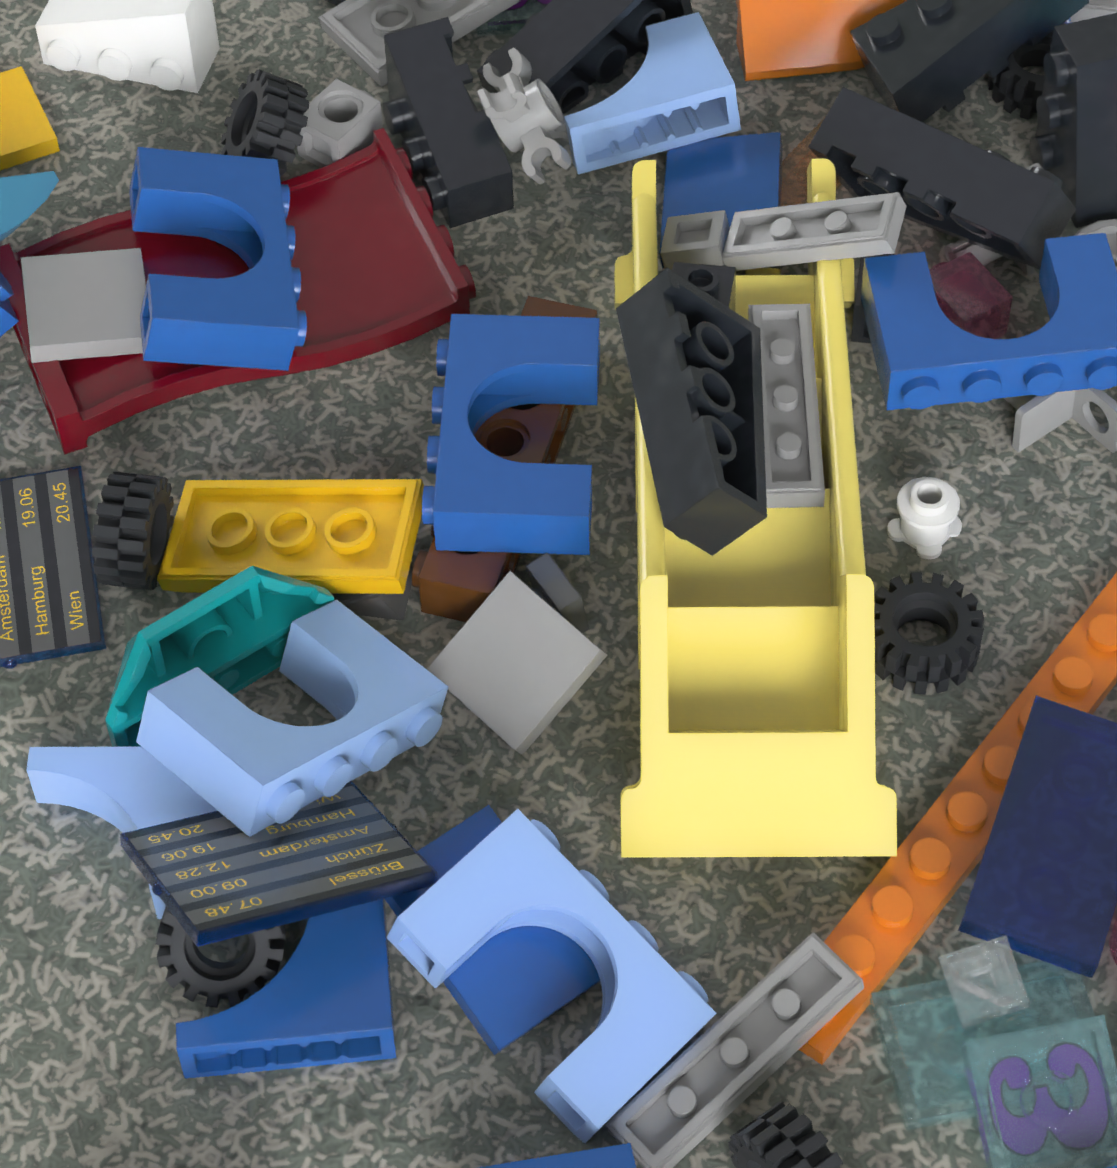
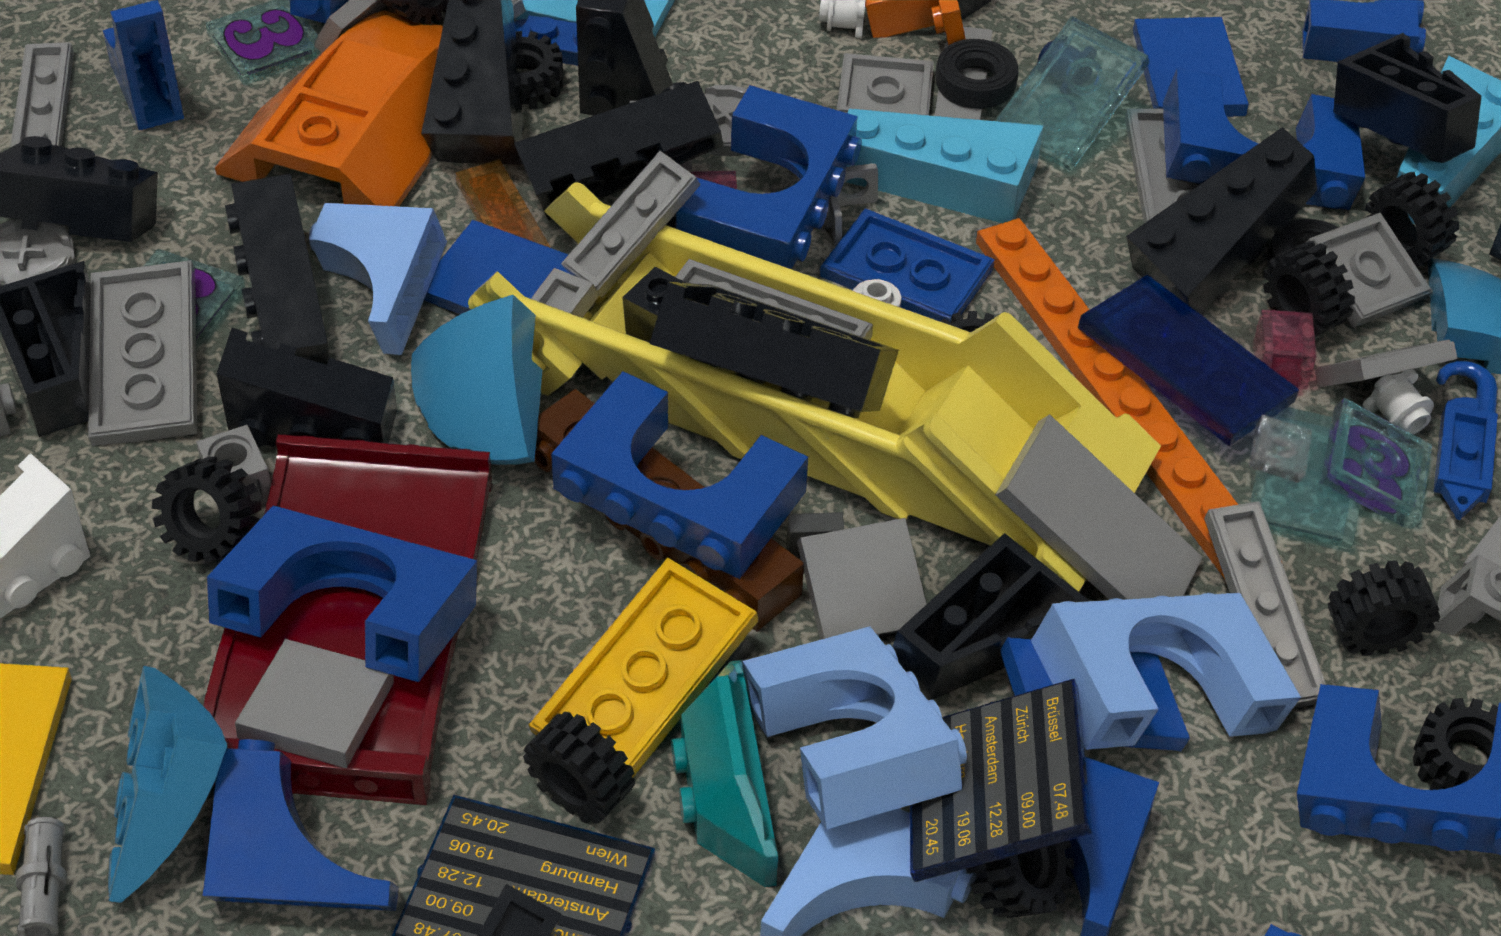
camera: 65 degrees left, 5 degrees down
(512, 764) = (966, 623): none -> black wedge
(525, 115) = (350, 339): light grey pin -> none
(547, 241) = (481, 383): none -> dark azure brick
(710, 830) = (1095, 518): none -> light grey tile
(1025, 522) = (929, 272): none -> blue tile

